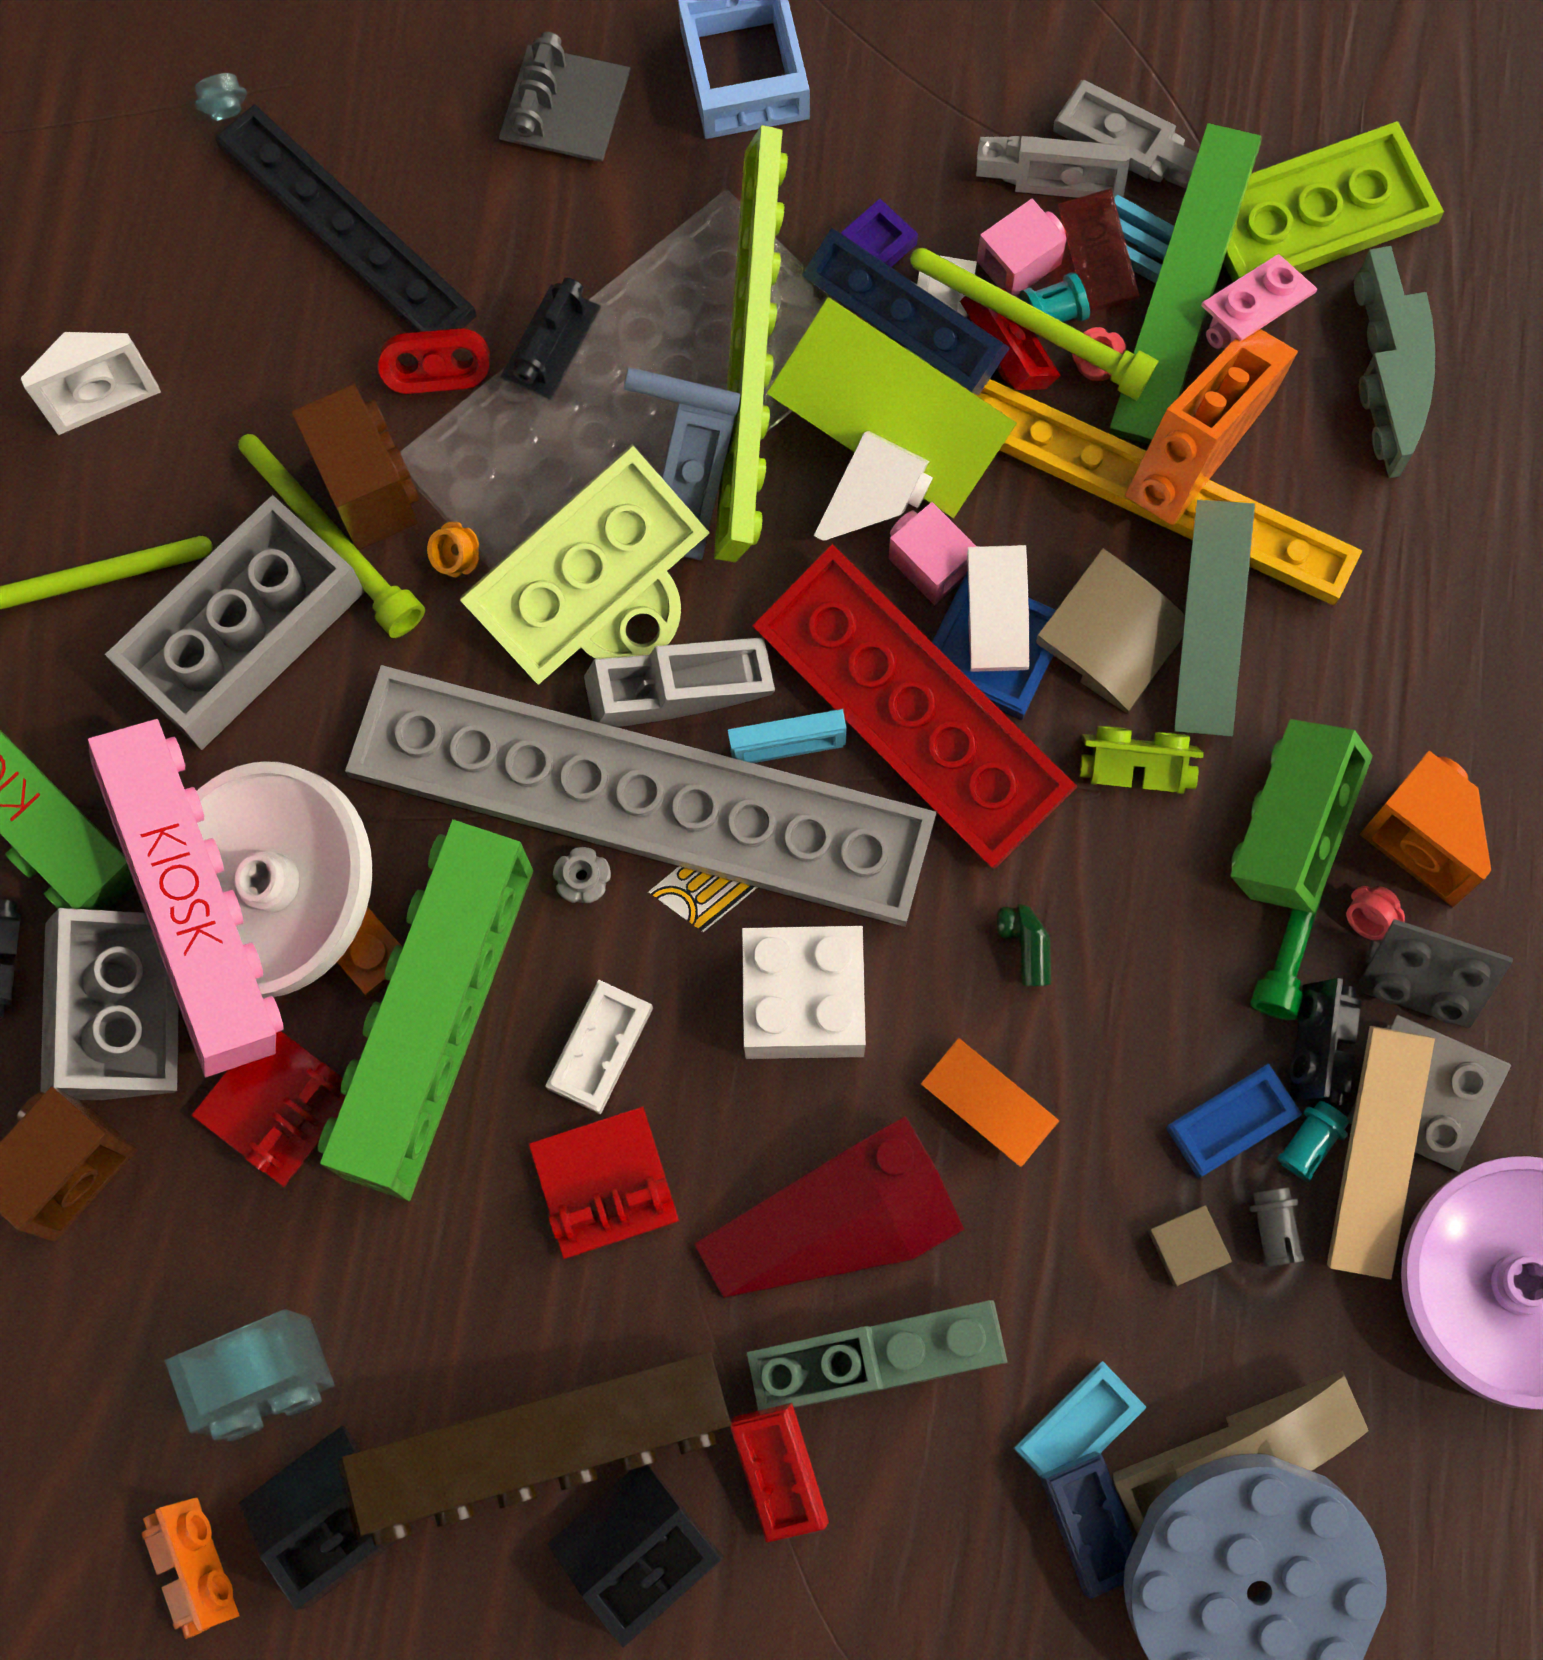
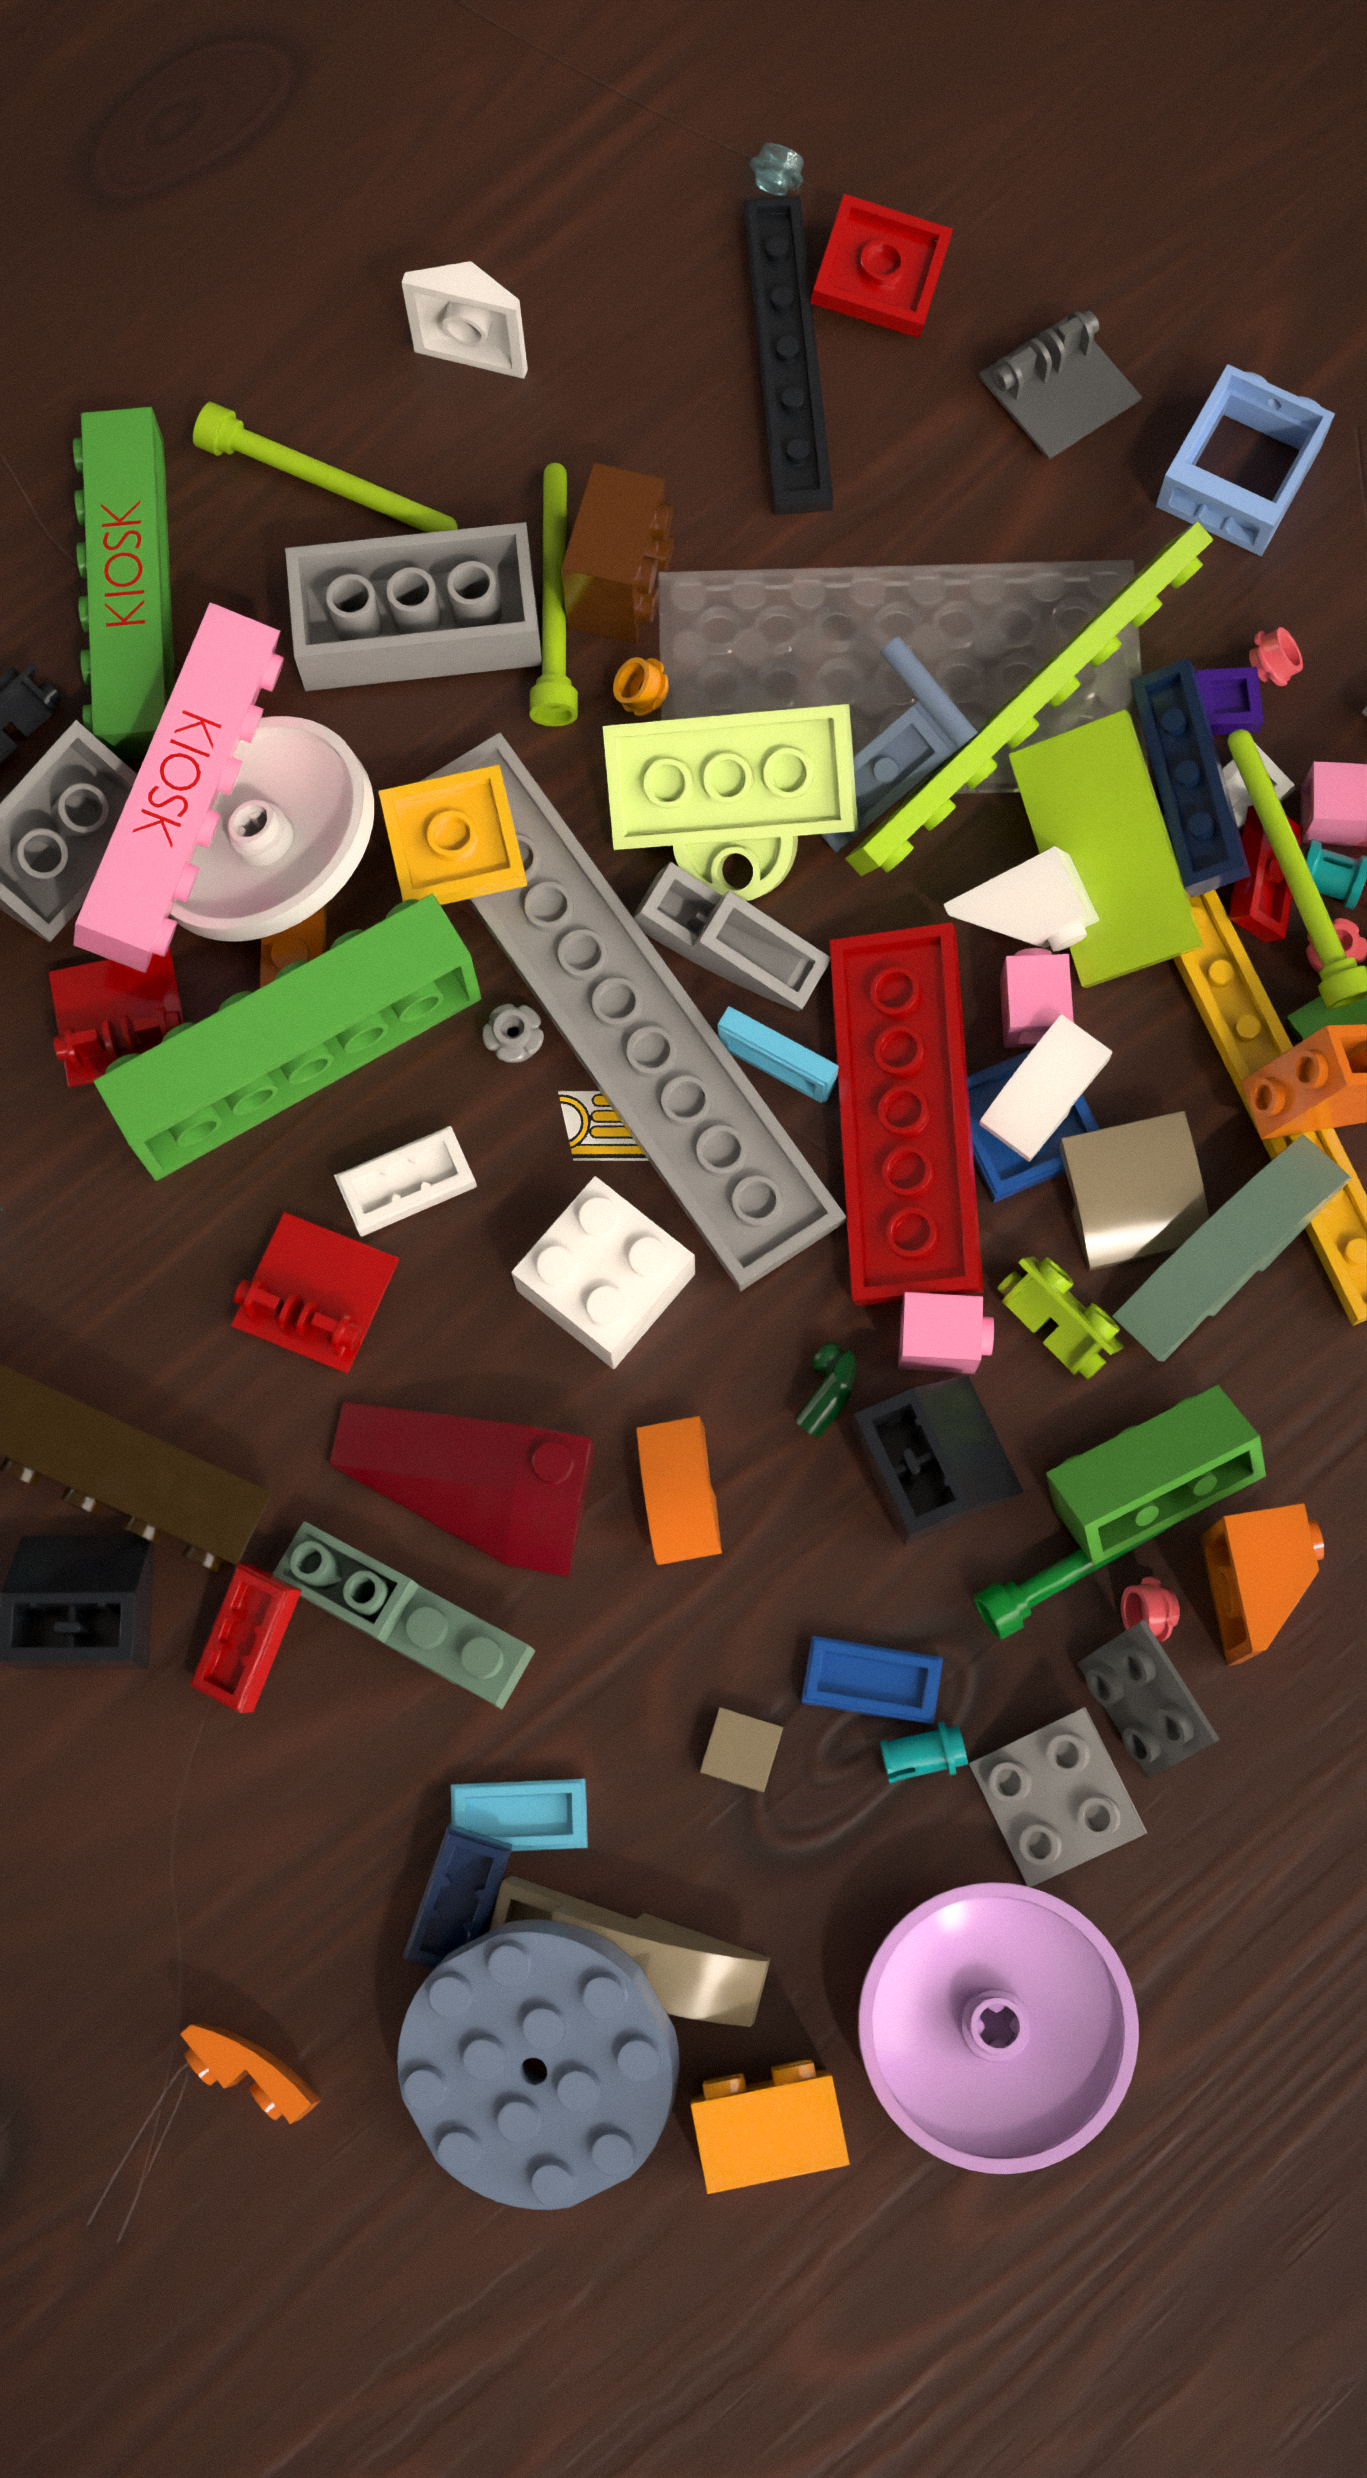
camera: 40 degrees right, 0 degrees up
(361, 110) = (881, 266): none -> red plate
(419, 768) = (453, 836): none -> yellow plate
(436, 365) = (762, 522): red plate -> none
(552, 339) = (868, 572): black hinge -> none
(884, 181) = (1276, 656): none -> coral plate
(1073, 838) = (943, 1333): none -> bright pink brick
(1145, 932) = (934, 1457): none -> black slope
(1277, 1226) = (828, 1797): dark grey pin -> none
(1325, 1016) = (1027, 1661): black hinge -> none
(1380, 1152) = (968, 1809): tan tile -> none
(1446, 1487) = (768, 2126): none -> light orange brick

